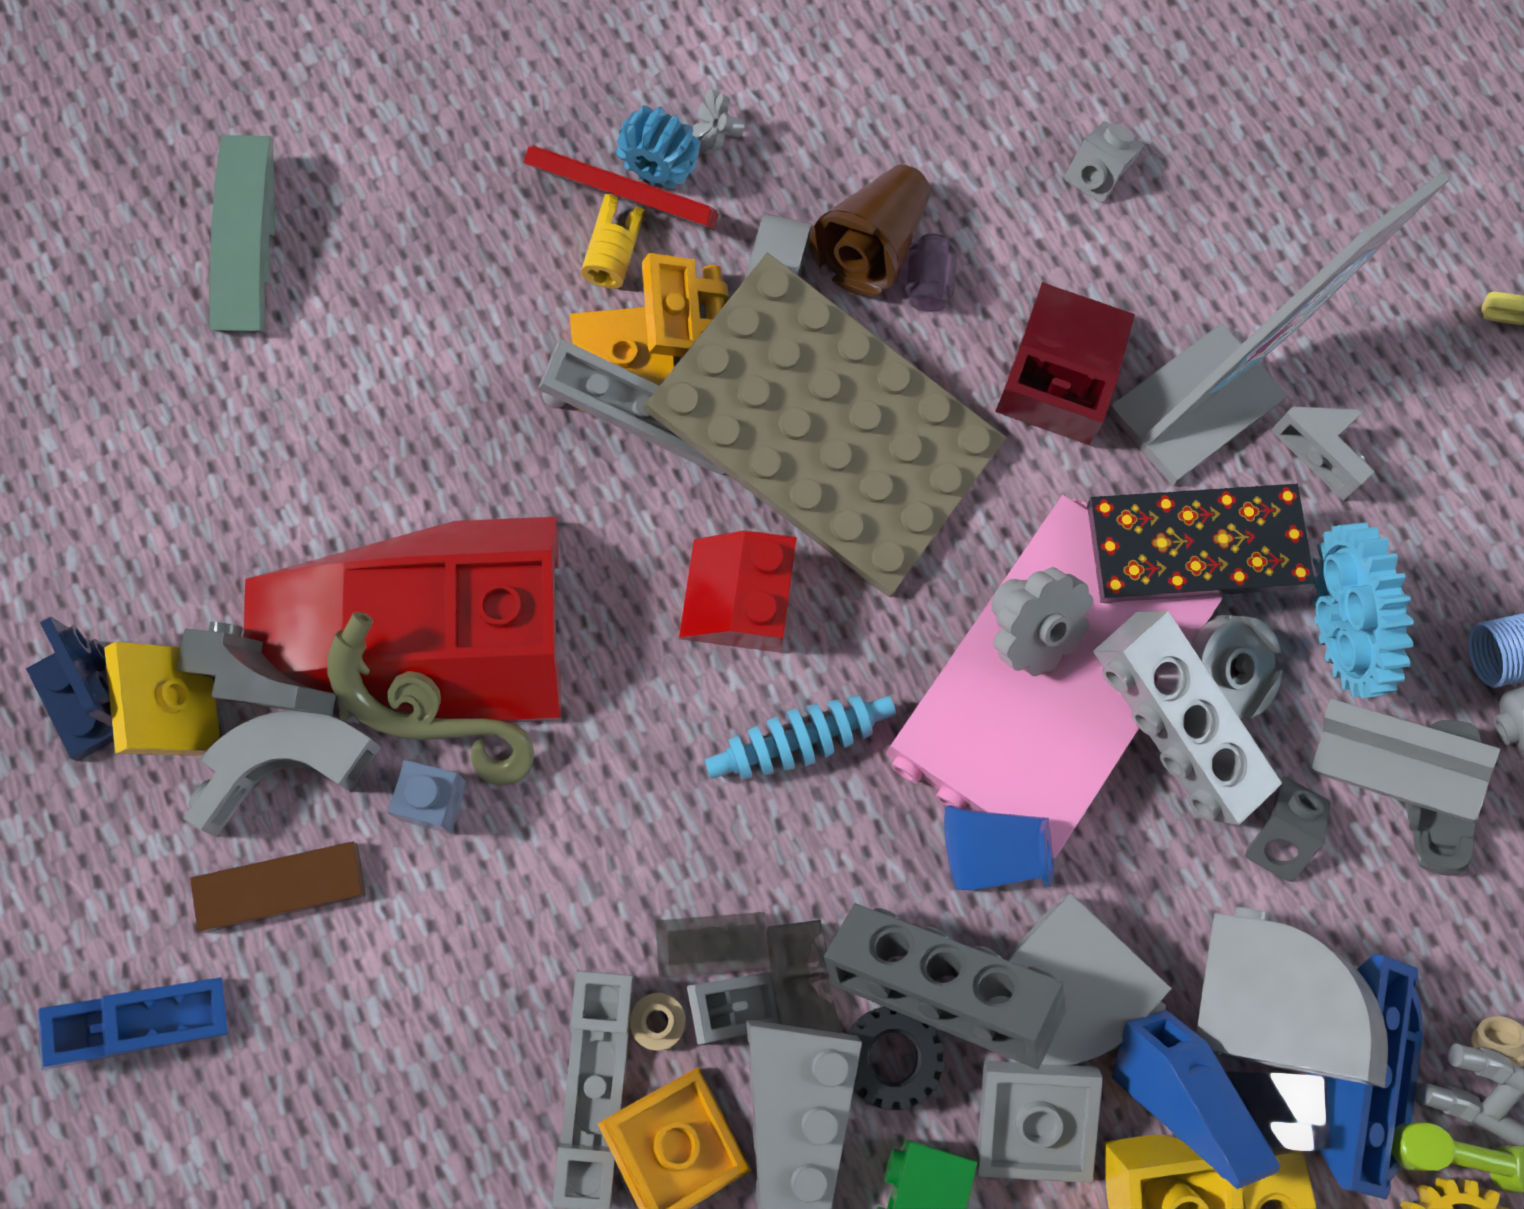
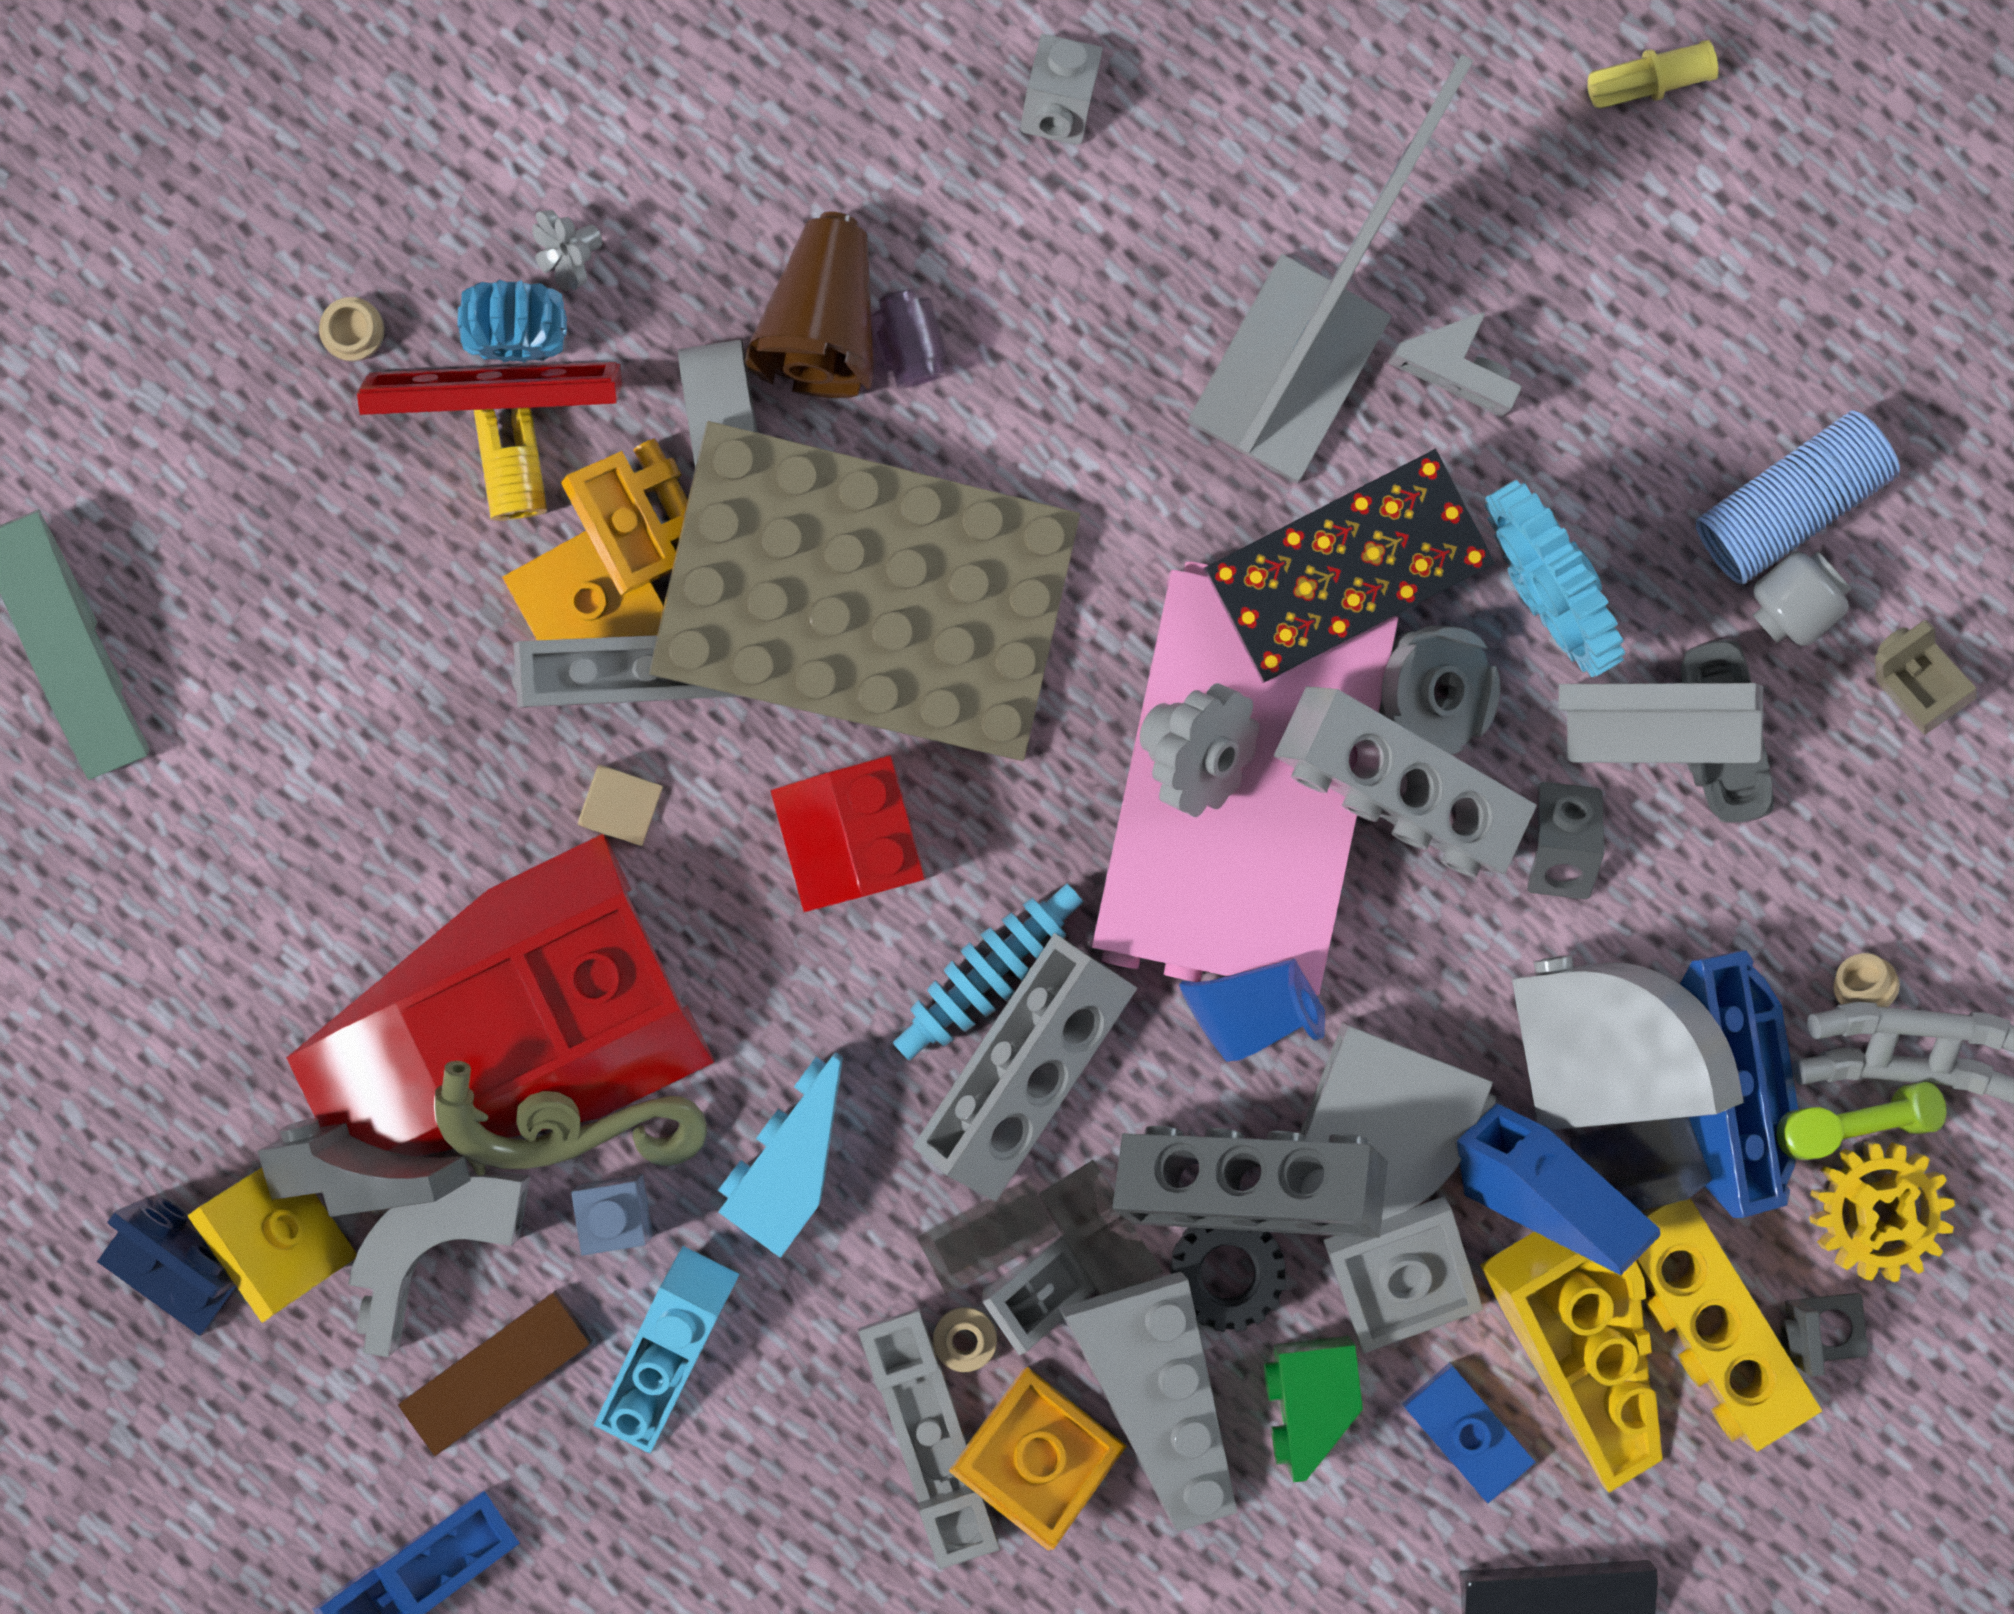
camera: 20 degrees left, 15 degrees up
(418, 923) = (666, 1349): none -> medium azure slope
(545, 118) = (351, 329): none -> tan plate
(576, 827) = (788, 1177): none -> medium azure slope
(578, 502) = (620, 805): none -> tan slope
(799, 819) = (1024, 1068): none -> light grey brick
(1066, 364) = (1115, 384): dark red slope -> none

